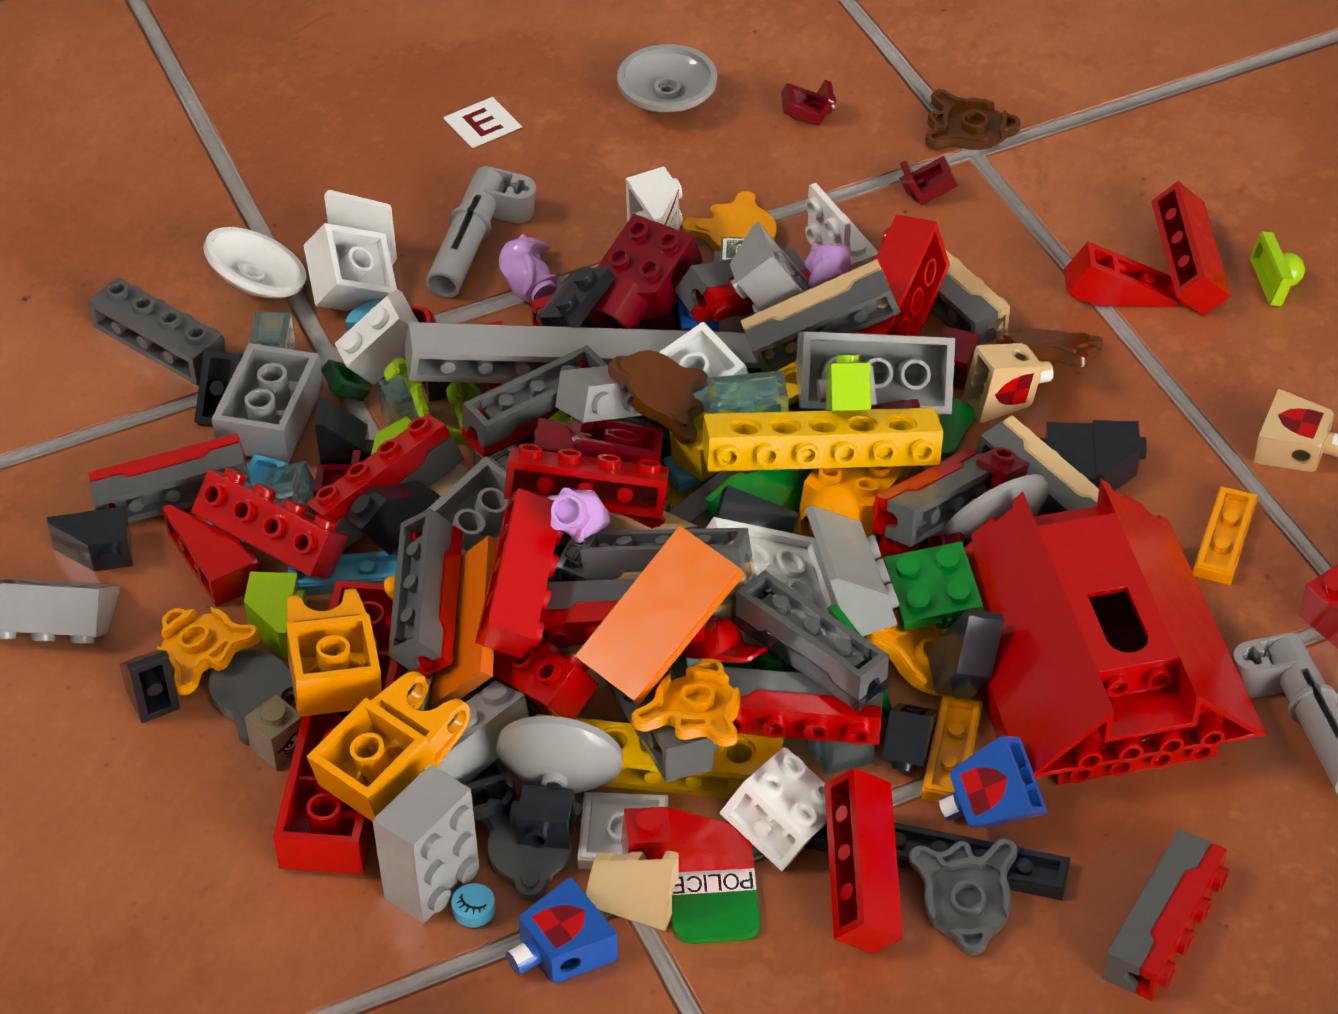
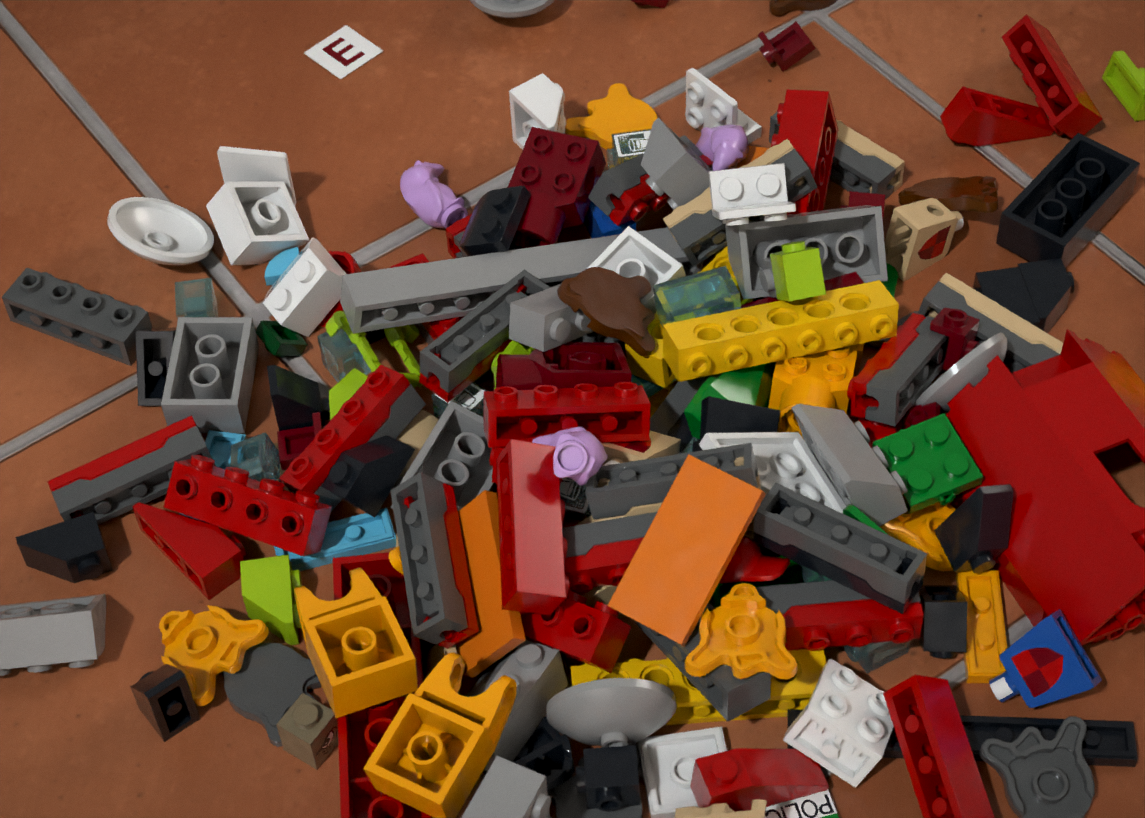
camera: 10 degrees left, 5 degrees up
(470, 223) = (372, 126): light grey piece -> none
(824, 303) = (748, 193): none -> white bracket
(1166, 370) = (1067, 202): none -> black brick

